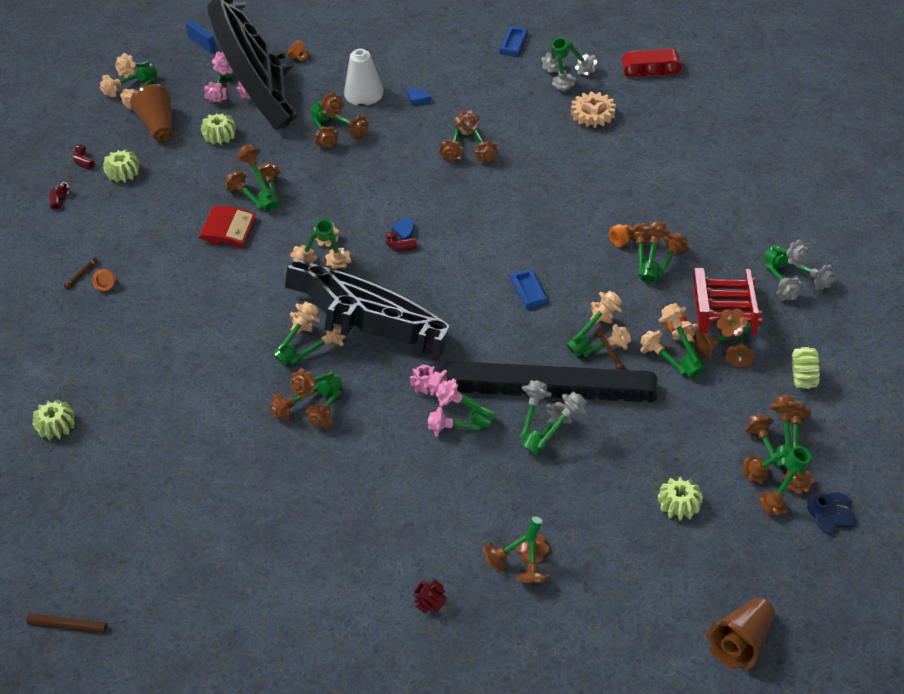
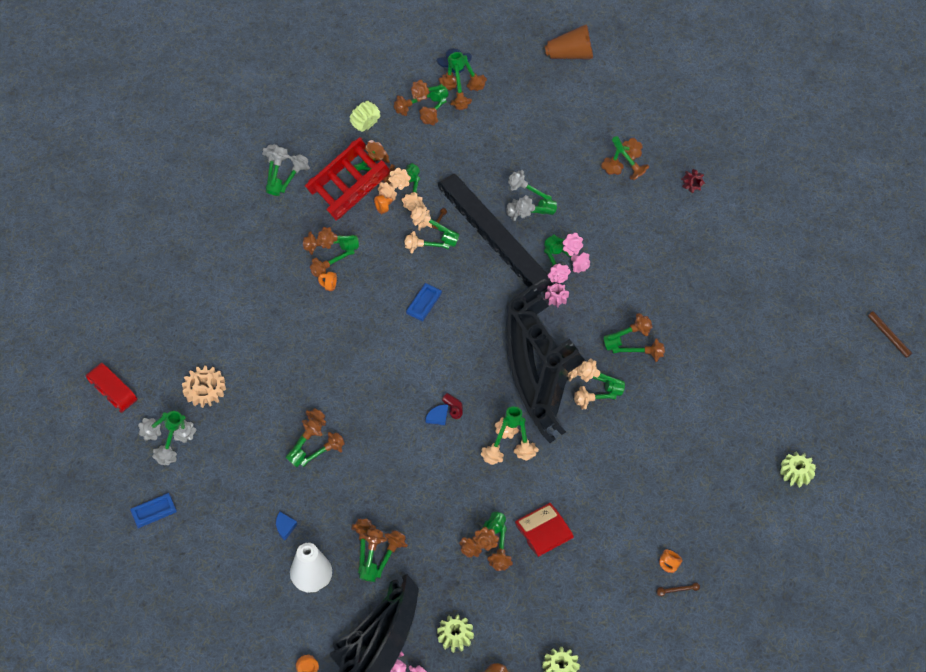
camera: 135 degrees left, 10 degrees up
(680, 498) = (515, 120): yellowish green gear -> none

